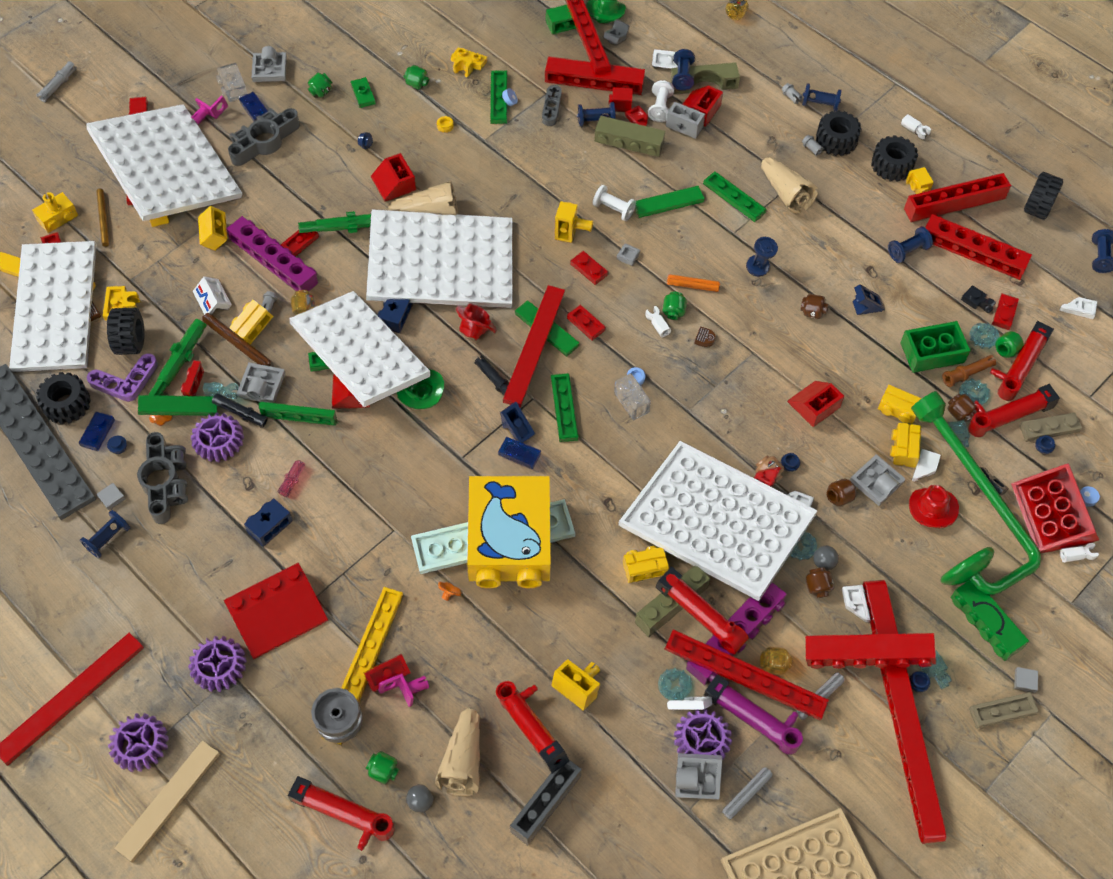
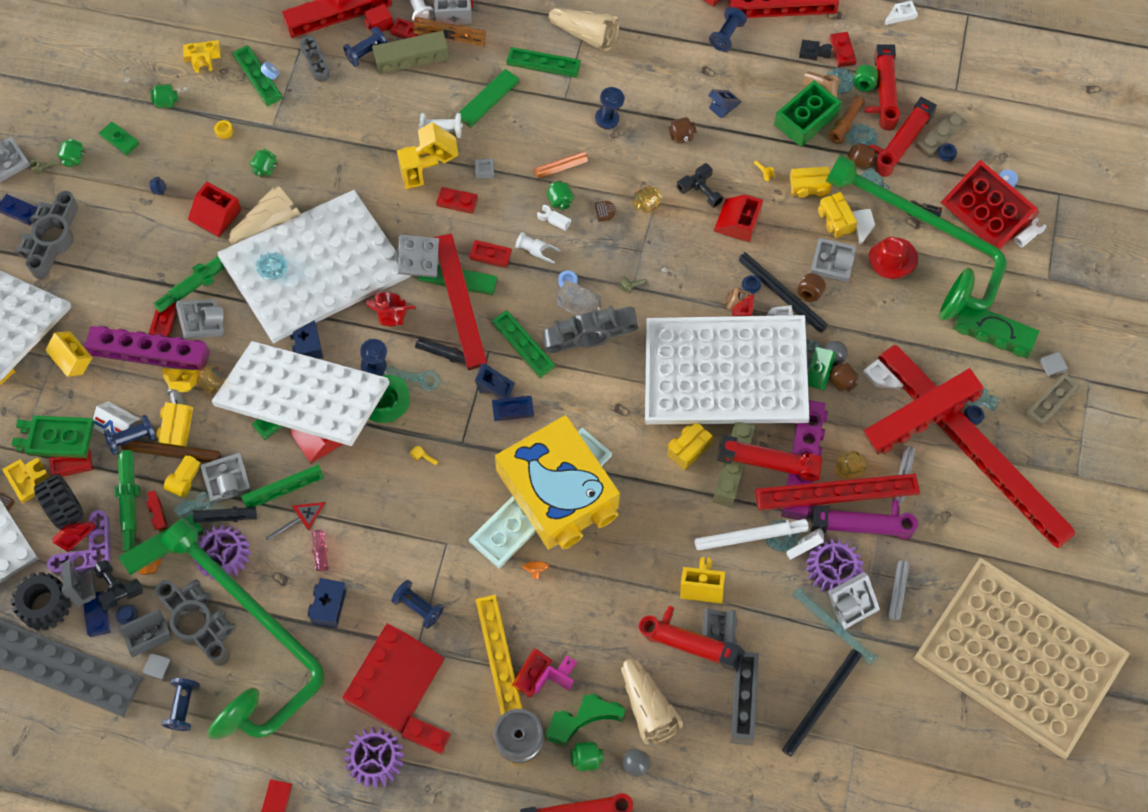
camera: 30 degrees left, 5 degrees up
(95, 400) = (76, 585): none -> dark grey bracket
(119, 465) = (146, 633): none -> dark grey bracket
(120, 361) = (72, 535): none -> red tile
(122, 420) = (116, 589): none -> black bar
(140, 562) = (183, 539): none -> green piece
(159, 310) = (69, 465): none -> red tile
(161, 283) = (55, 436): none -> green tile
(212, 310) = (129, 435): none -> dark blue hose
(226, 366) = (180, 481): none -> yellow piece
(270, 672) = (426, 735): none -> red plate
(279, 290) = (180, 379): none -> yellow wing
(289, 84) = (38, 167): none -> olive hand
(302, 445) = (306, 513): none -> piece
(326, 253) = (200, 318): none -> light grey plate
(339, 577) = (417, 604): none -> dark blue hose
(409, 244) = (265, 269): none -> clear light blue gear
(413, 731) = (592, 709): none -> green arch
(419, 445) = (418, 452): none -> yellow hand
(433, 348) = (373, 357): none -> dark blue hose
(456, 162) = (263, 163): none -> green head
(462, 388) = (414, 376): none -> clear light blue piece
(523, 292) = (417, 256): none -> light grey plate
(567, 728) = (719, 625): none -> dark grey bracket
(601, 212) = (437, 140): none -> yellow brick
(613, 847) = (821, 703): none -> black axle
(624, 422) = (590, 329): none -> dark grey piece
(626, 335) = (535, 246): none -> white piece
(648, 668) = (752, 534): none -> white axle
(672, 135) = (451, 31): none -> clear orange tile
(681, 834) = (870, 658): none -> clear light blue bar
(682, 407) = (627, 286): none -> olive hand
(745, 346) = (647, 199): none -> clear yellow head
(800, 355) = (698, 182): none -> black bar
(802, 563) = (820, 368): none -> green plate
(814, 484) = (784, 293): none -> black axle
(867, 377) = (767, 171): none -> yellow hand
(970, 330) = (829, 82): none -> medium nougat piece

